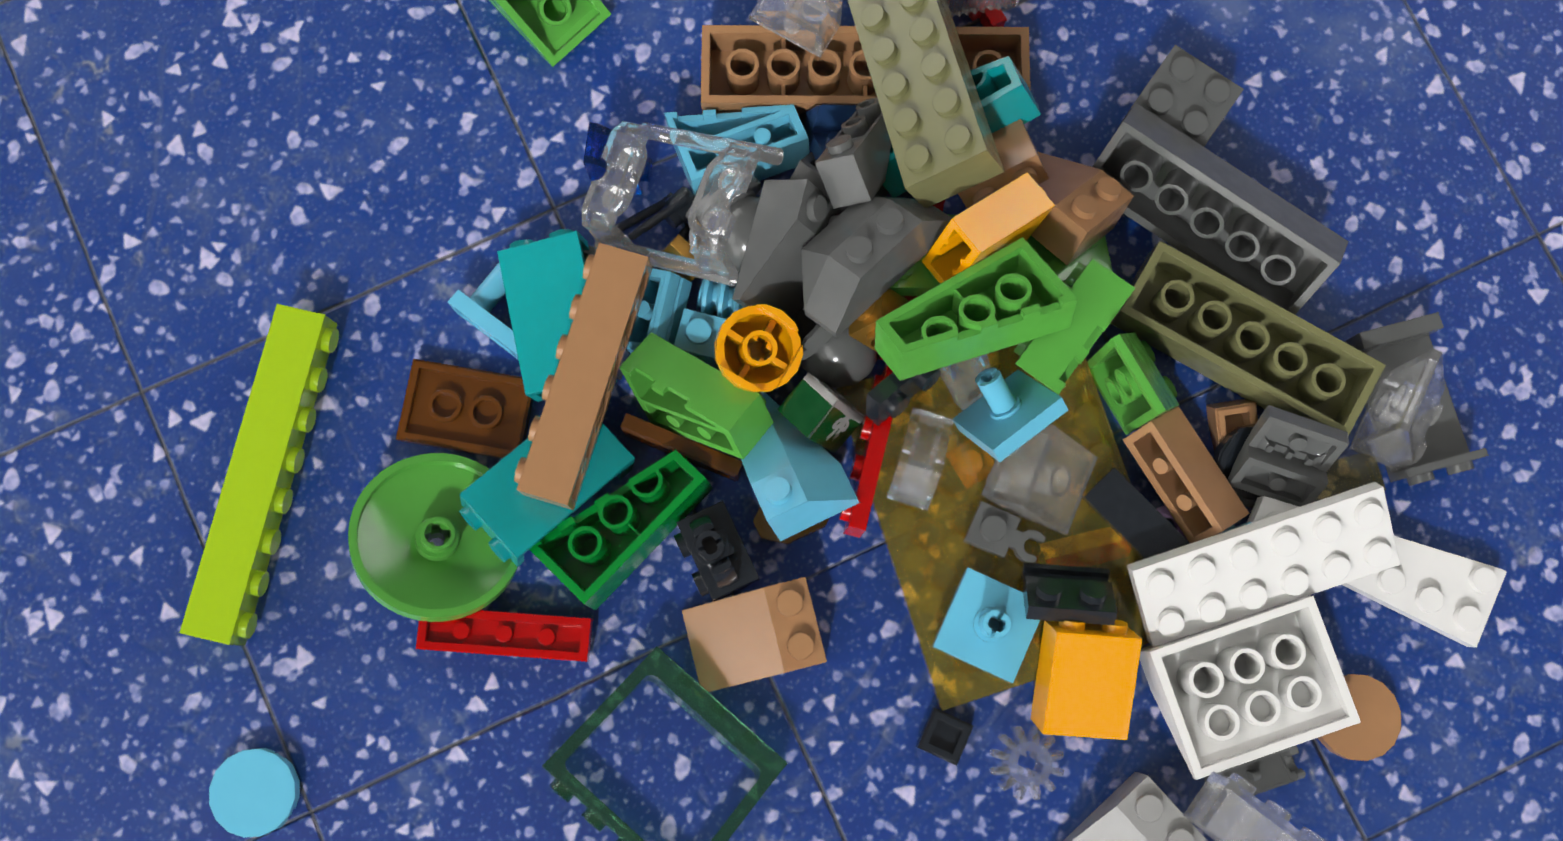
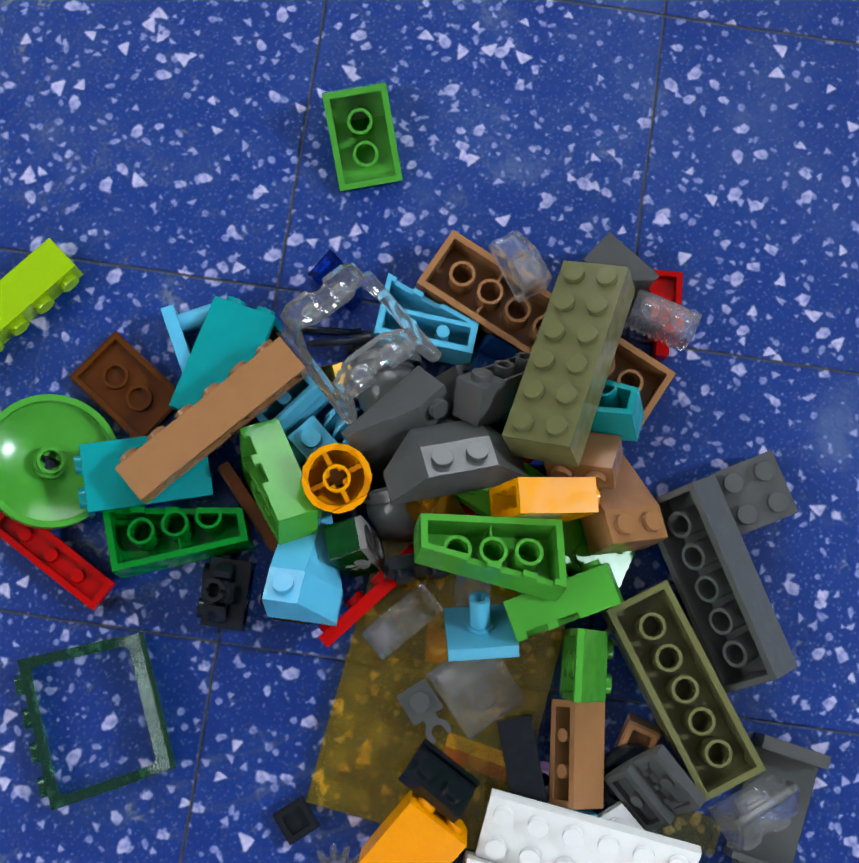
camera: 25 degrees right, 0 degrees up
(754, 635) = (214, 667): medium nougat slope -> none
(986, 626) = (371, 765): medium azure tile -> none

